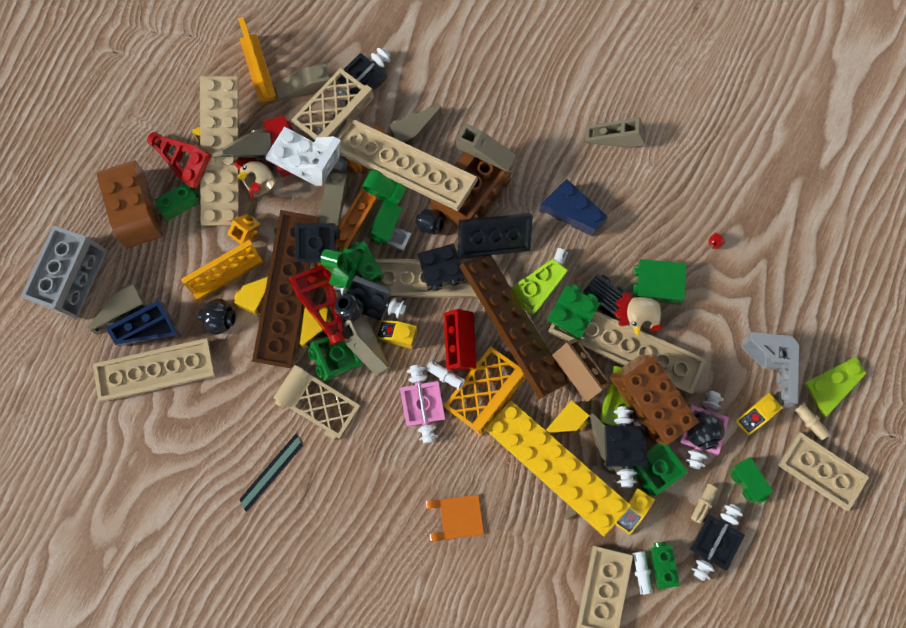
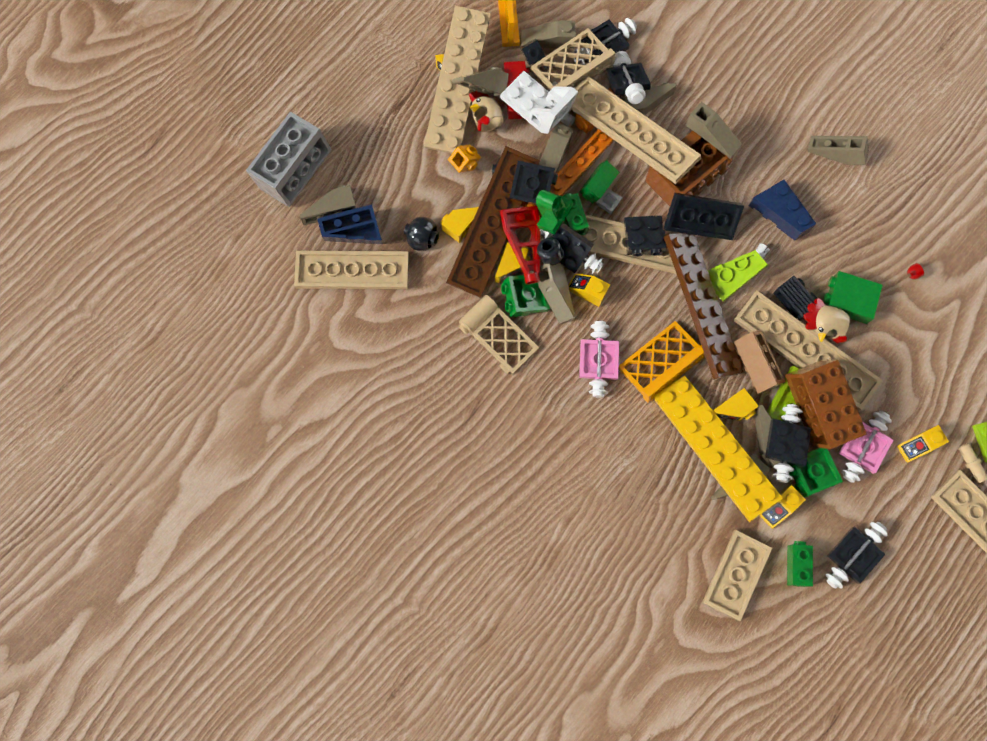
camera: 10 degrees right, 0 degrees up
(129, 204) = (362, 111): dark orange brick -> none
(177, 201) = (406, 118): green brick -> none
(196, 164) = (432, 88): red plate -> none
(222, 270) = (437, 191): light orange fence -> none
(270, 472) = (441, 390): sticker -> none
(290, 104) = (533, 52): none -> black brick
(383, 187) = (606, 148): green tile -> none
(391, 110) = (628, 78): none -> plate
(430, 221) = (642, 191): black head -> none
(445, 375) = (627, 337): white pin -> none
(459, 517) = (611, 473): orange flag -> none
(460, 340) = (648, 308): red brick -> none
(573, 311) = (764, 305): green plate -> none
(642, 572) = (777, 566): white pin -> none
(704, 503) = (852, 515): tan axle -> none
(706, 432) = (869, 447): black plant -> none
(751, 480) = (902, 505): green brick -> none
(780, 354) = (963, 390): light grey bracket -> none

